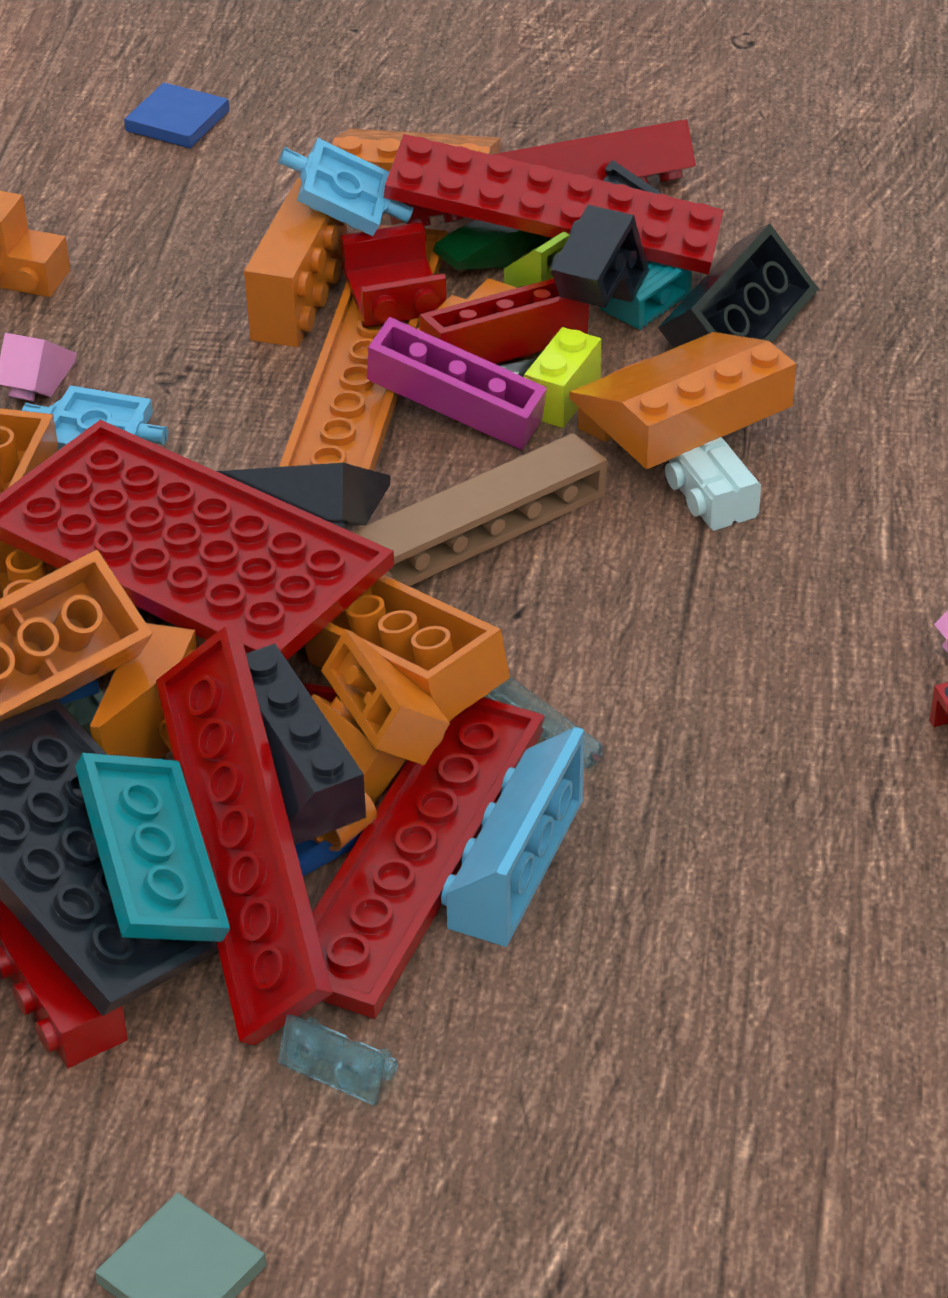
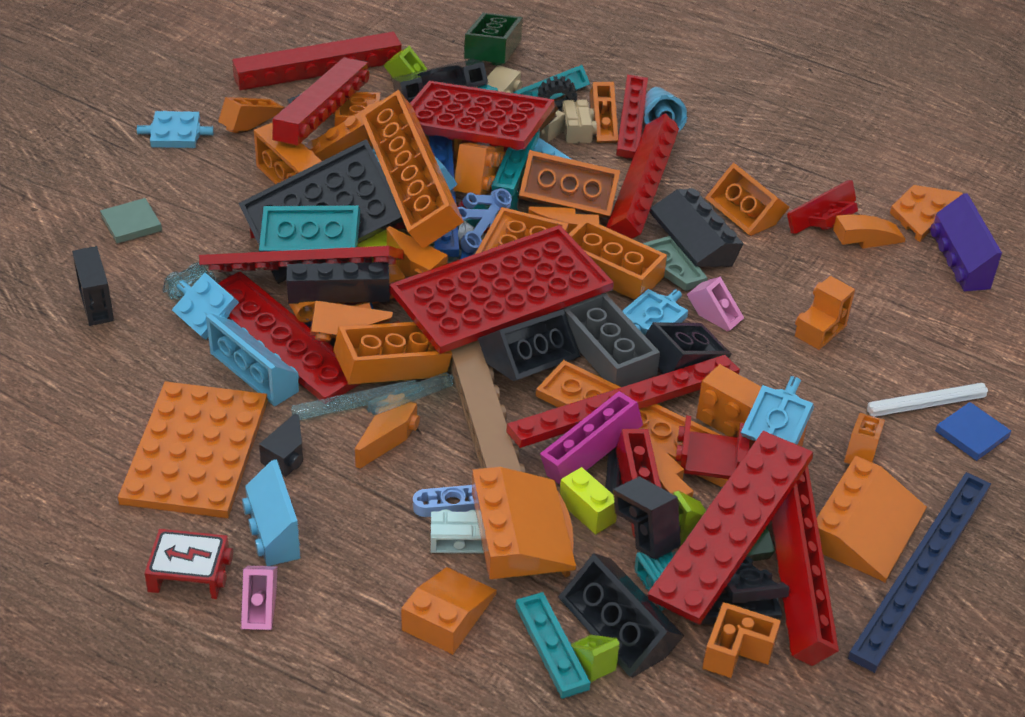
camera: 110 degrees right, 0 degrees up
(137, 156) = (927, 399): none -> white axle
(171, 370) = (684, 344): none -> black slope
(224, 417) = (611, 341): none -> dark grey brick
(253, 182) = (864, 438): none -> orange slope
(346, 386) = (645, 393): none -> red plate
(413, 974) = (202, 299): none -> medium azure plate
(459, 108) = (918, 573): none -> dark blue plate
(477, 1164) = (93, 285): none -> black window
(516, 583) = (409, 393): none -> clear light blue axle
(567, 622) = (386, 433): none -> orange slope
(651, 533) = (432, 496): none -> light blue beam
(681, 722) = (284, 446): none -> black slope
(739, 195) = (739, 634): none -> orange brick
(756, 851) = (194, 450): none -> orange plate
(821, 305) = (597, 655): none -> lime slope
(842, 344) = (552, 645): none -> teal plate
(848, 658) = (272, 516): none -> medium azure slope
(850, 451) = (445, 609): none -> orange slope

